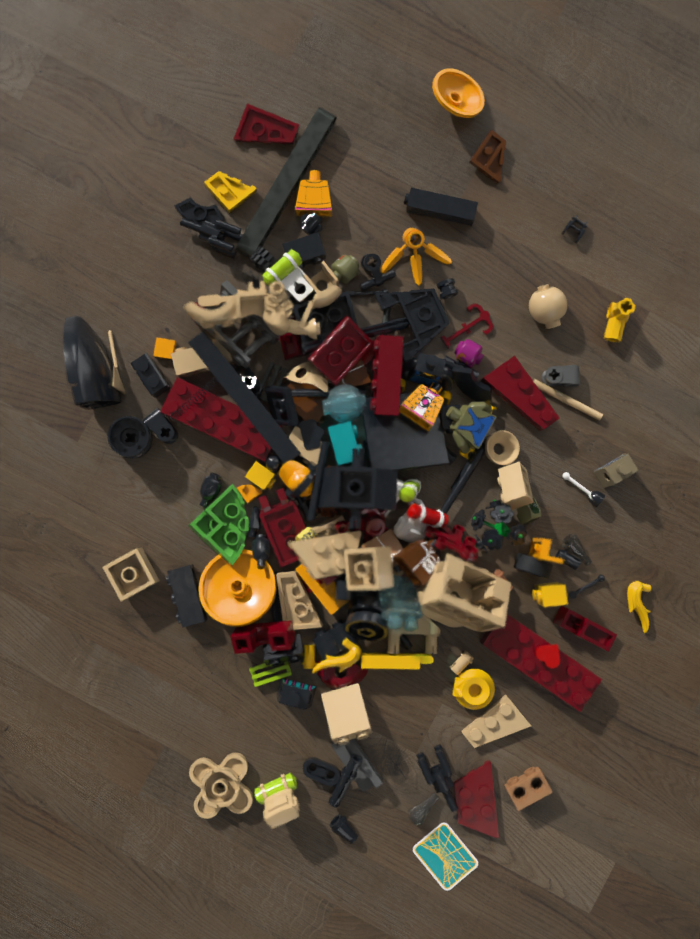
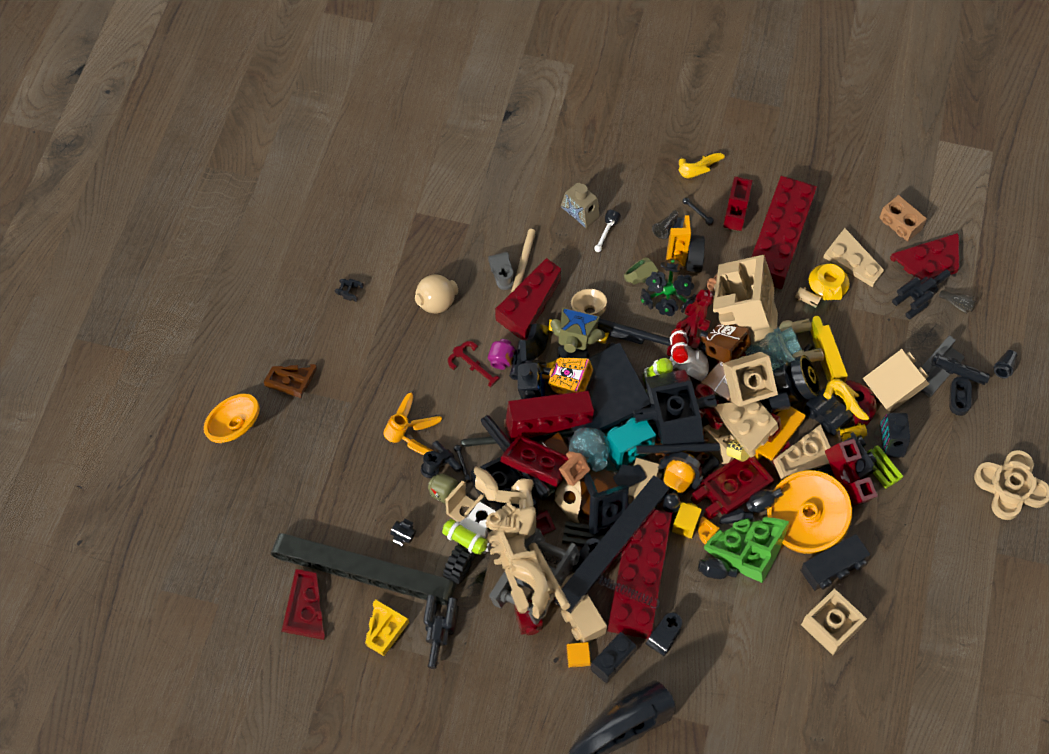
camera: 110 degrees left, 25 degrees down
(116, 380) = (610, 701): tan piece -> none
(119, 436) = (687, 646): black wheel -> none
(198, 214) = (418, 655): black tile -> none
(223, 330) = (549, 576): none -> tan bar
(279, 800) = (1004, 422): tan piece -> none
(309, 249) = (429, 528): black brick -> none
(313, 196) = (371, 537): light orange torso -> none
(320, 380) = (574, 468): none -> nougat bracket
(422, 312) = (471, 404): black wing -> none
(441, 206) = (355, 412): black brick -> none
(445, 856) = (993, 275): teal sticker -> none
(447, 288) = (440, 387): black wheel -> none
(515, 485) = (623, 282): tan brick -> none
(549, 655) = (774, 218): red tile -> none
(550, 594) = (717, 232): yellow brick -> none
(617, 316) = (429, 234): yellow piece -> none

